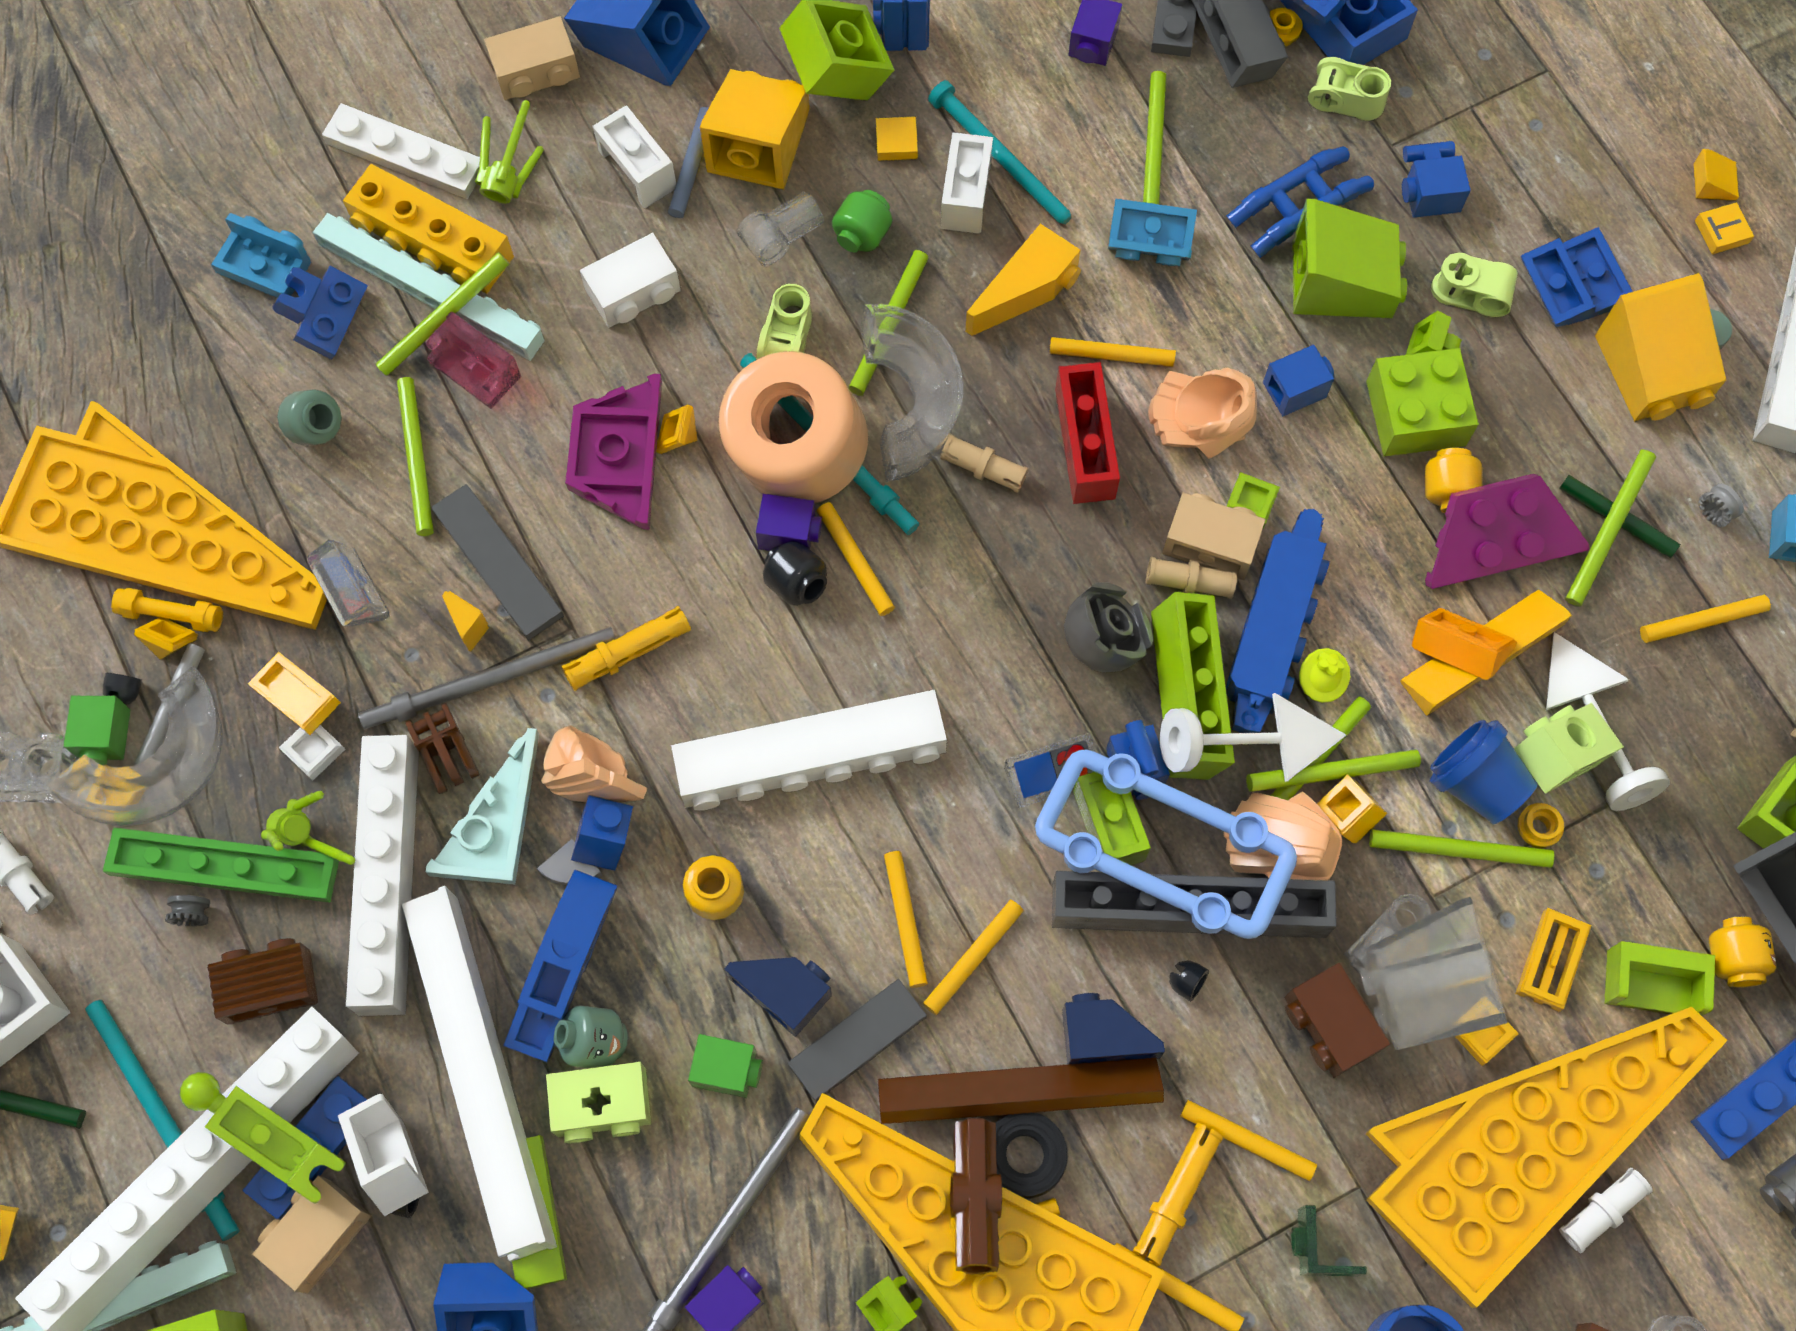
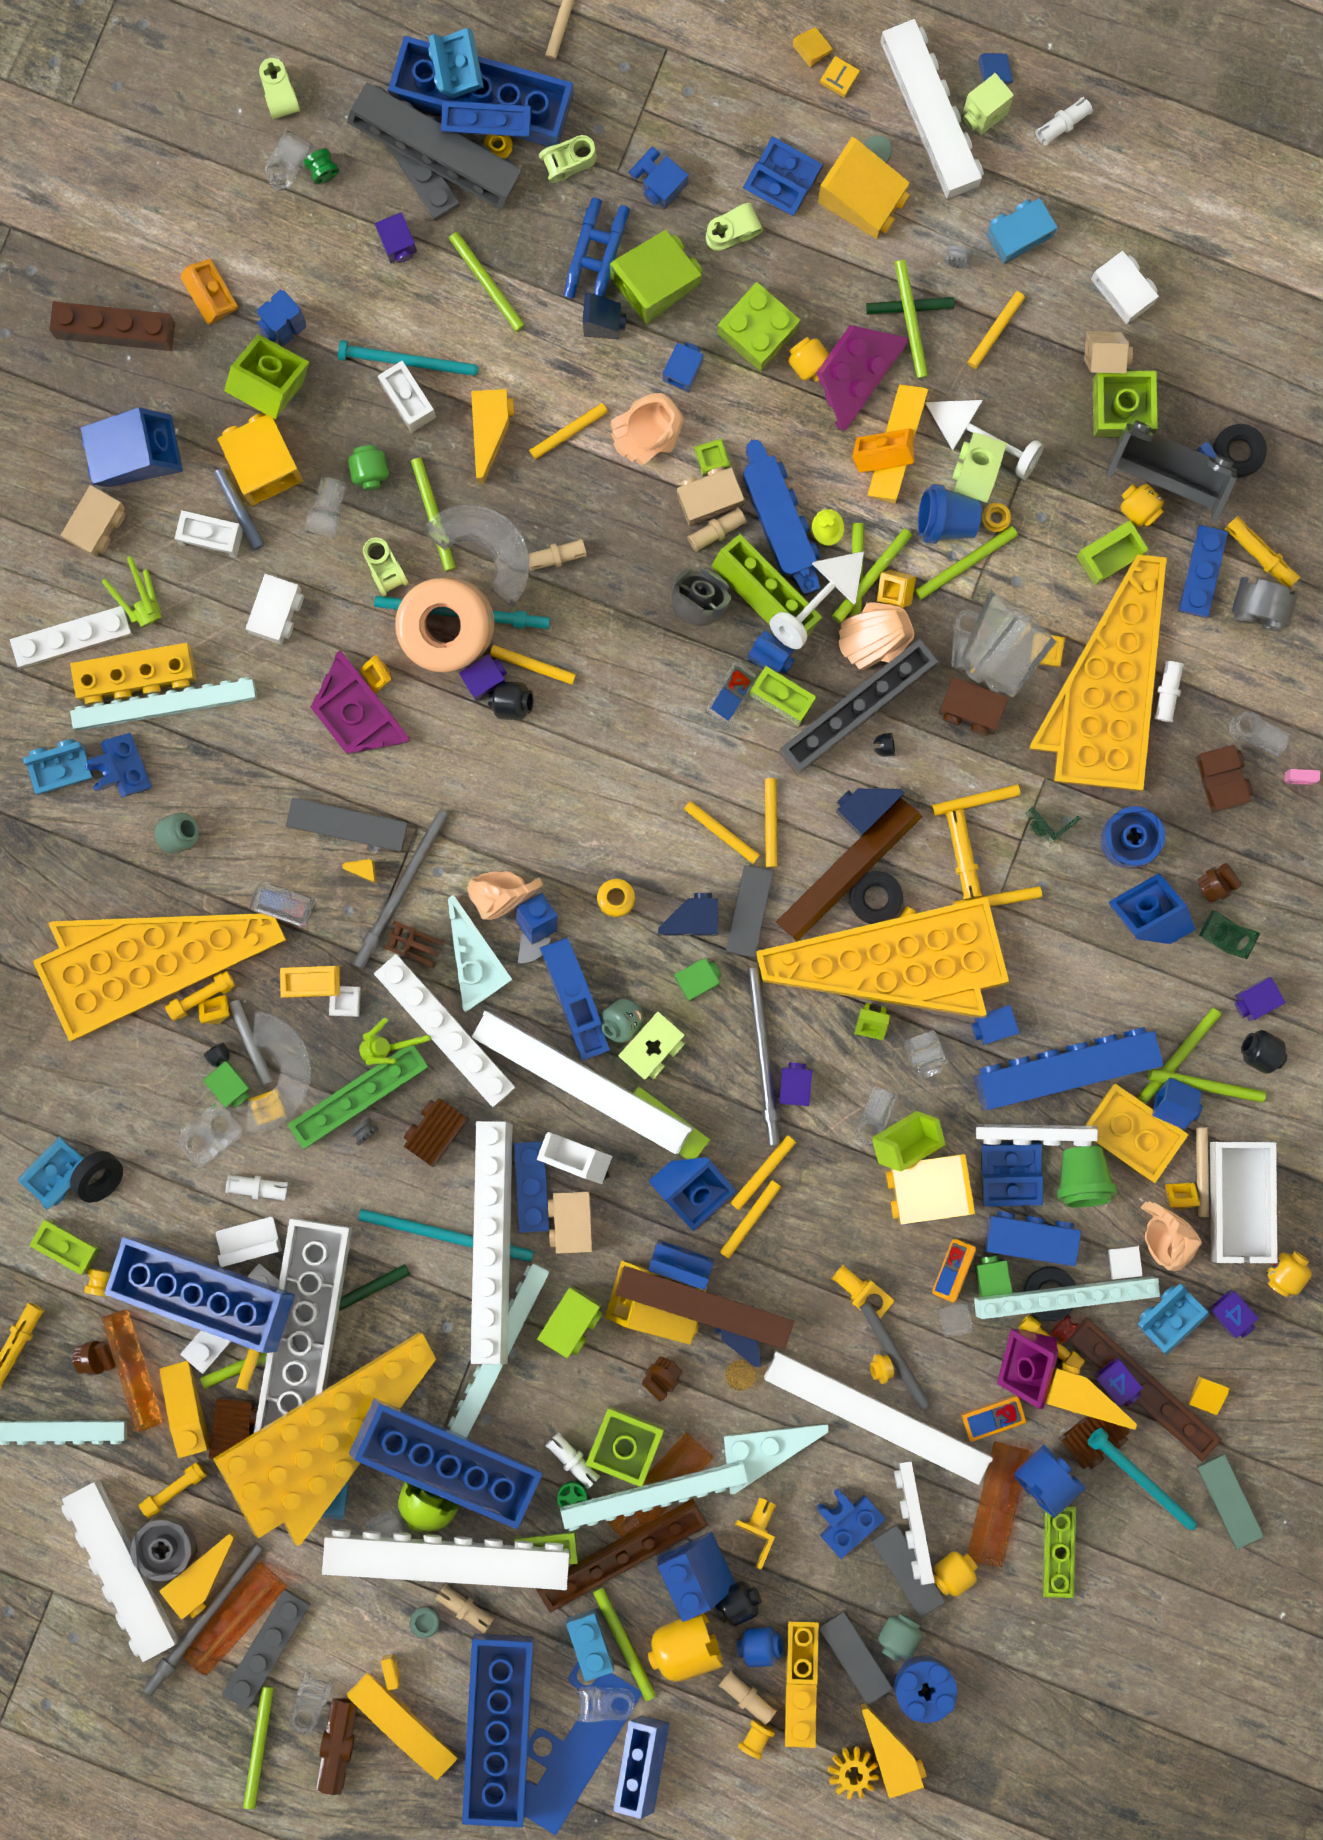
camera: 40 degrees left, 15 degrees up
(259, 1133) = (514, 1196): lime plate -> none
(415, 456) = (248, 805): lime bar -> none
(433, 321) = (191, 715): lime bar -> none
(472, 360) = (230, 727): clear pink hinge -> none
(618, 652) = (456, 820): yellow pin -> none
(809, 750) = (600, 787): white brick -> none
(896, 138) = (341, 398): yellow tile -> none
(975, 1196) = (871, 937): reddish brown piece -> none
(1087, 433) = (597, 494): red brick -> none
(1152, 231) = (533, 342): dark azure bracket -> none
(1208, 911) = (788, 728): light blue bar -> none
(1249, 258) = (602, 317): none -> dark blue slope
(1432, 335) = (734, 283): lime tile -> none
(1540, 994) = (1043, 588): yellow tile -> none

